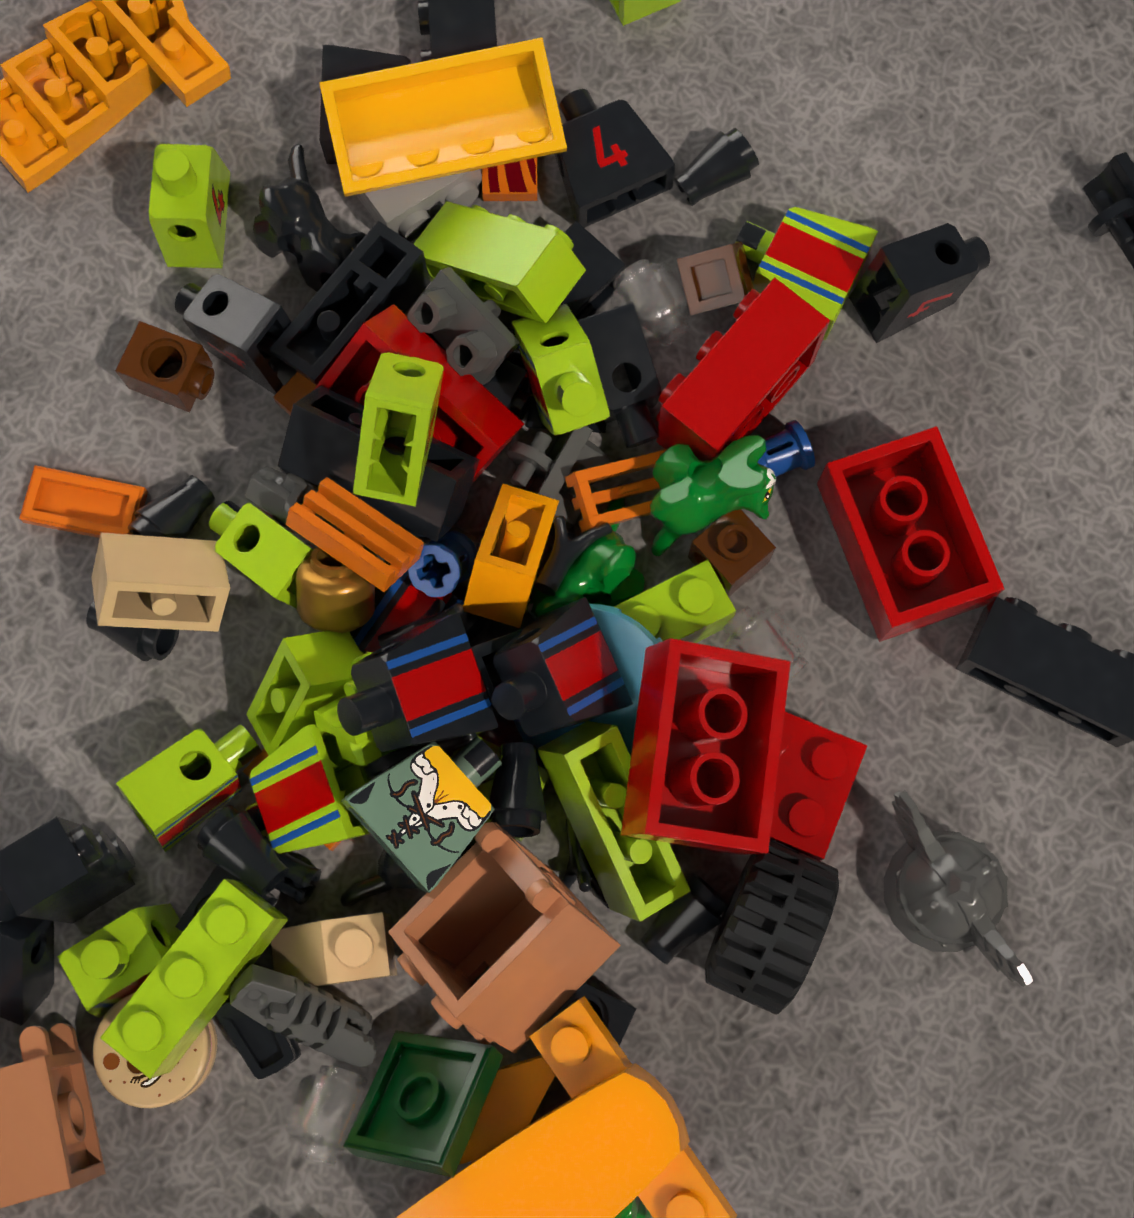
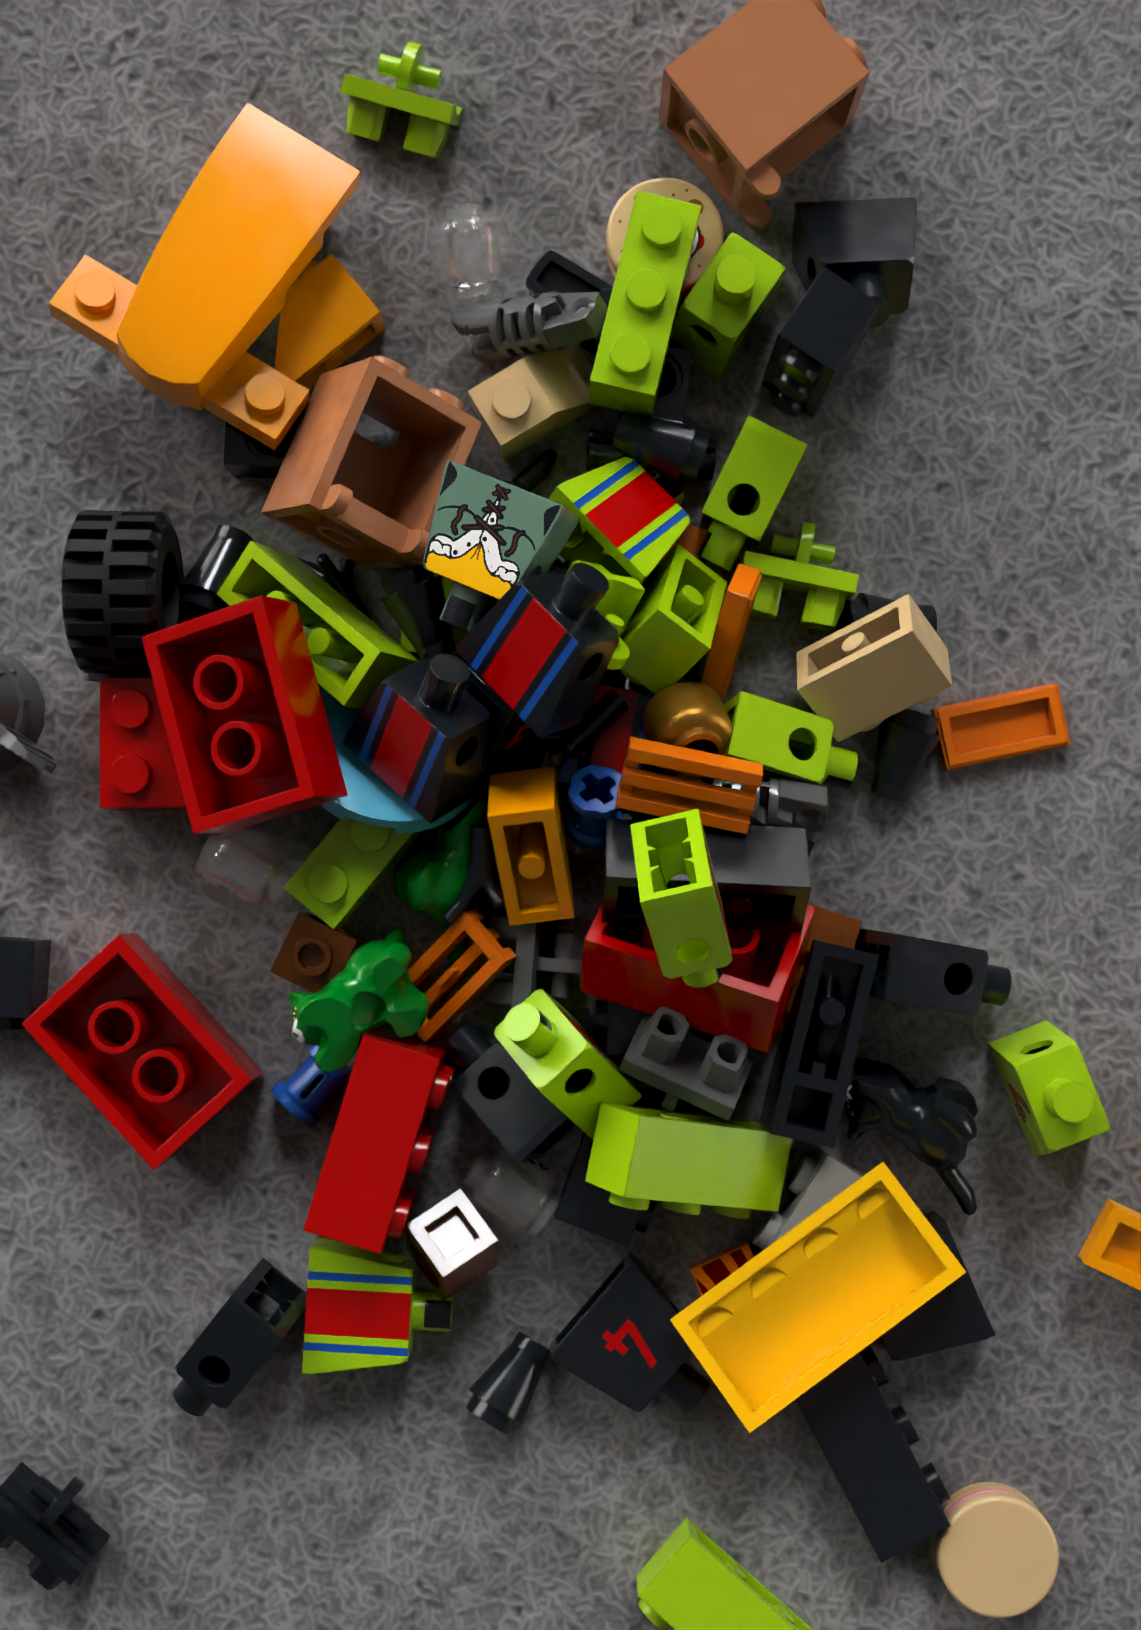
camera: 160 degrees right, 10 degrees up
(150, 352) = (1012, 909): reddish brown brick -> none
(170, 673) = (823, 586): none -> lime hips
(247, 675) = (731, 629): none -> orange tile
(424, 1102) = (382, 291): dark green tile -> none

